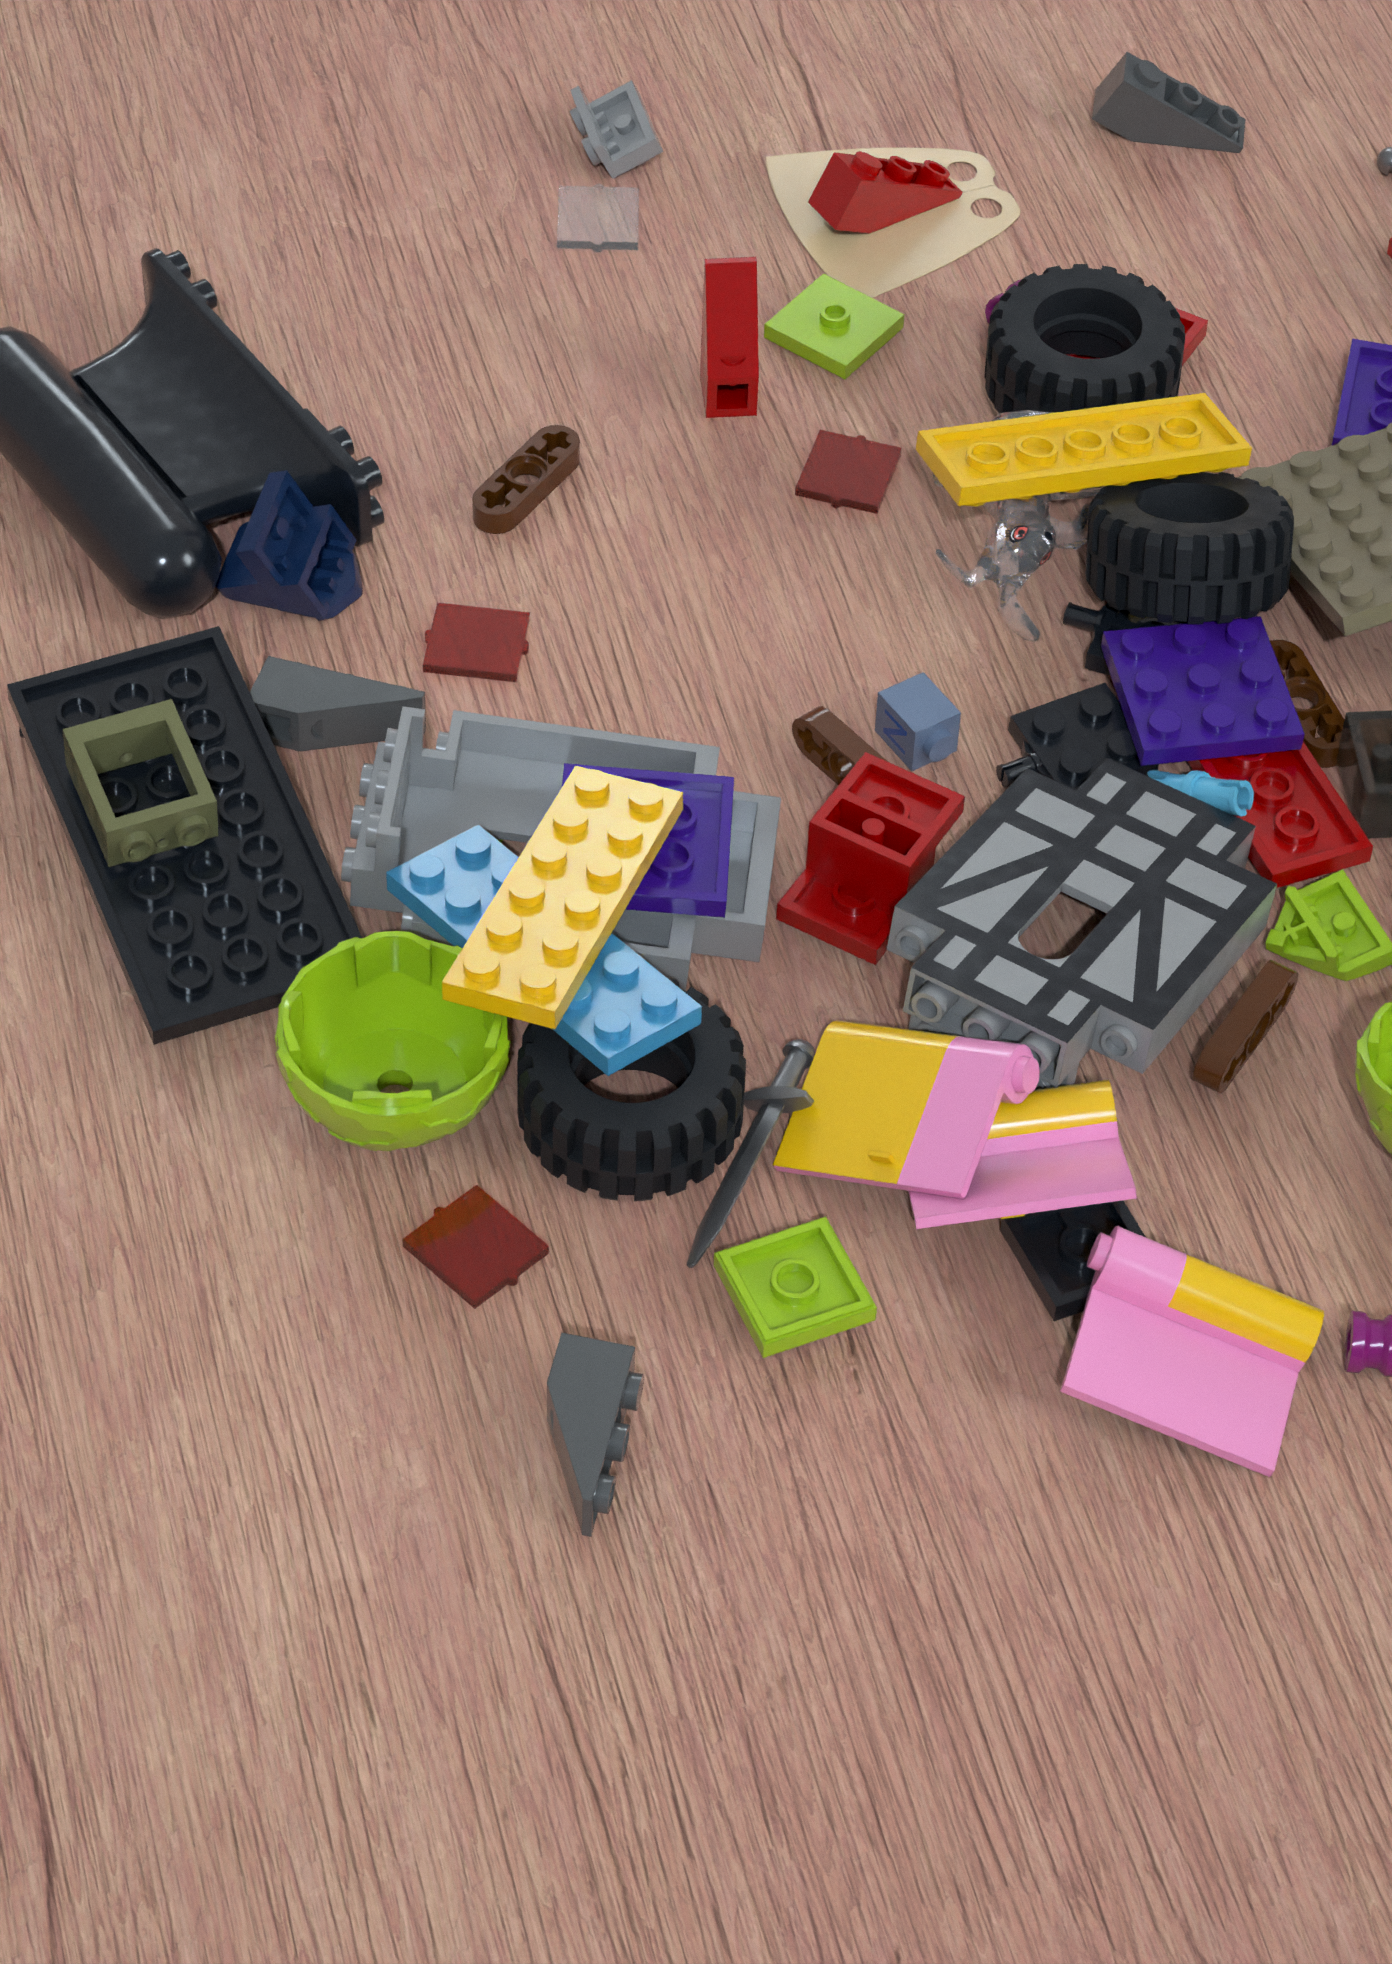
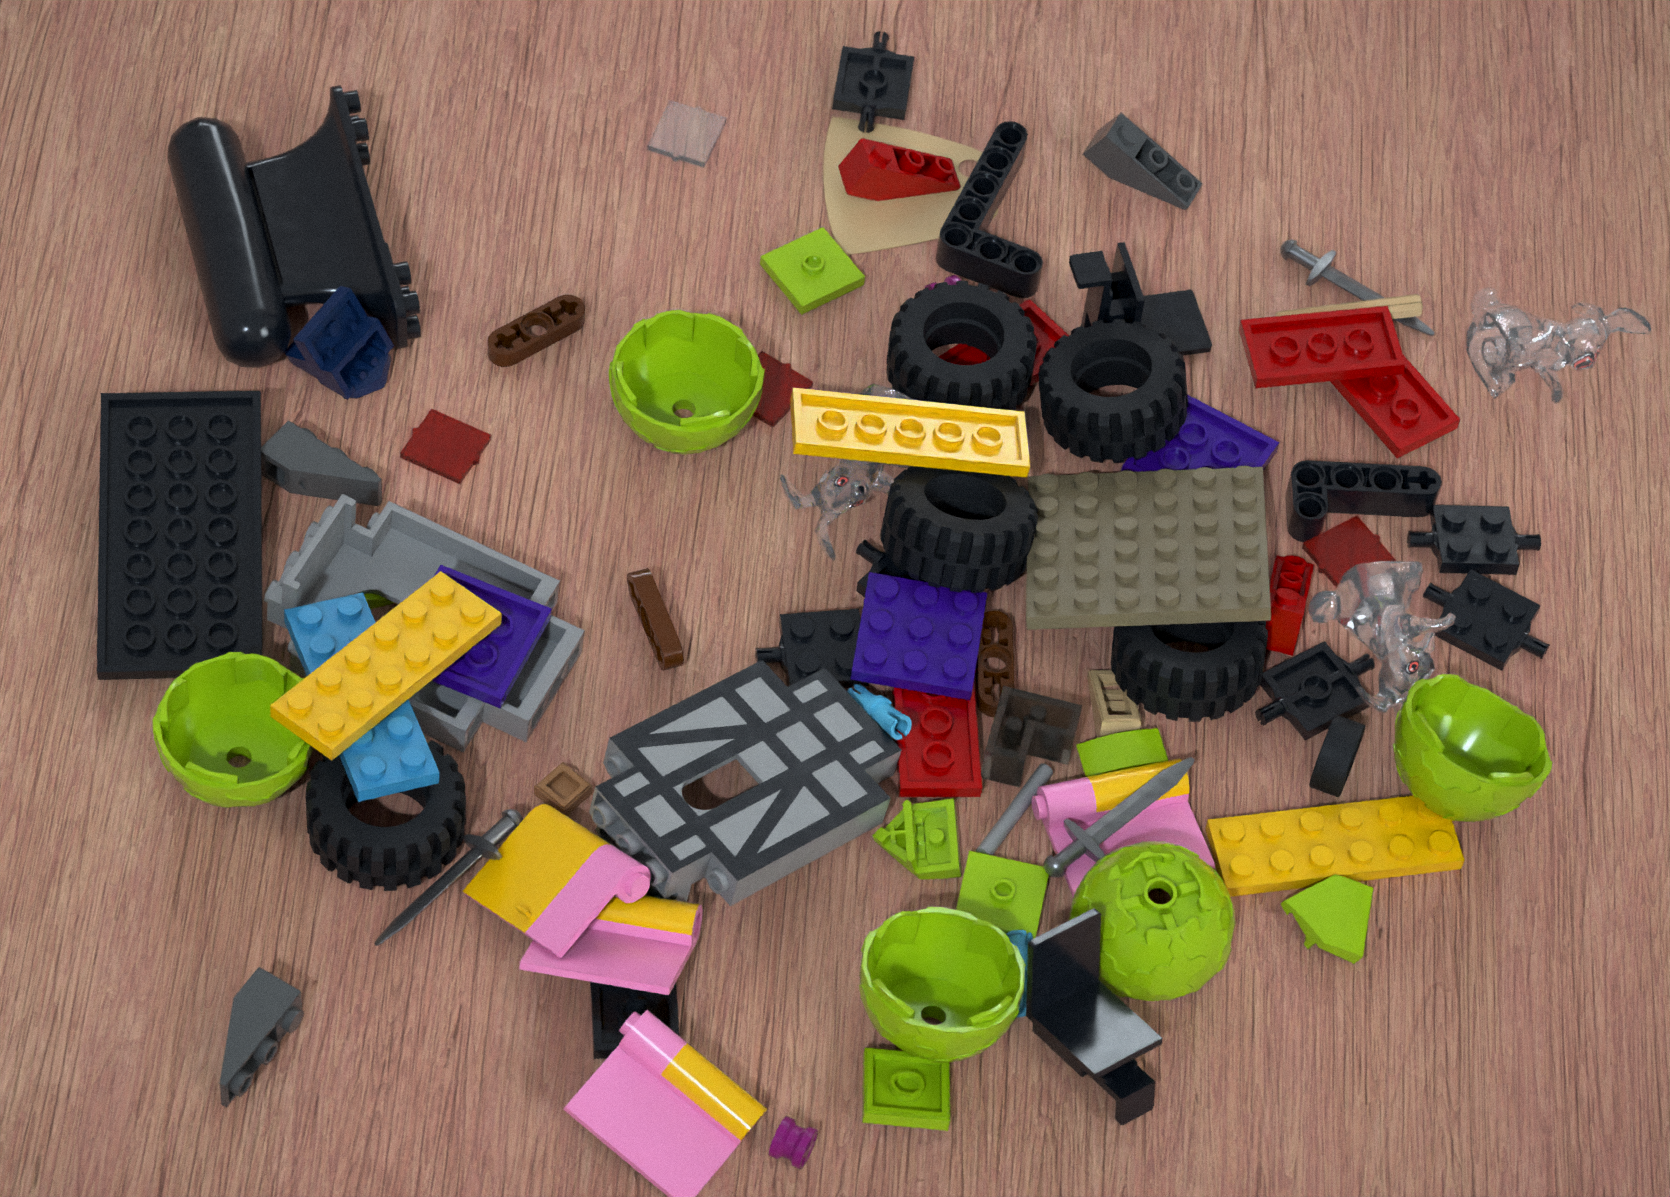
camera: 15 degrees right, 5 degrees up
(125, 741) = (155, 459): olive window -> none
(475, 1246) = (243, 886): clear red piece -> none
(616, 129) = (728, 65): light grey bracket -> none
(730, 337) = (716, 264): red slope -> none
(763, 474) = (689, 365): none -> lime piece
(794, 1287) = (433, 981): lime plate -> none
(799, 105) = (873, 82): none -> black plate
(839, 999) = (563, 789): none -> medium nougat tile
(867, 854) = (622, 687): red bracket -> none
(917, 721) = (714, 599): sand blue brick -> none
(1002, 243) = (963, 240): none -> black beam
(1245, 1026) = (826, 892): reddish brown beam -> none
(1253, 264) = (1120, 297): none -> black piece
(1288, 350) = (1121, 424): none -> black tyre

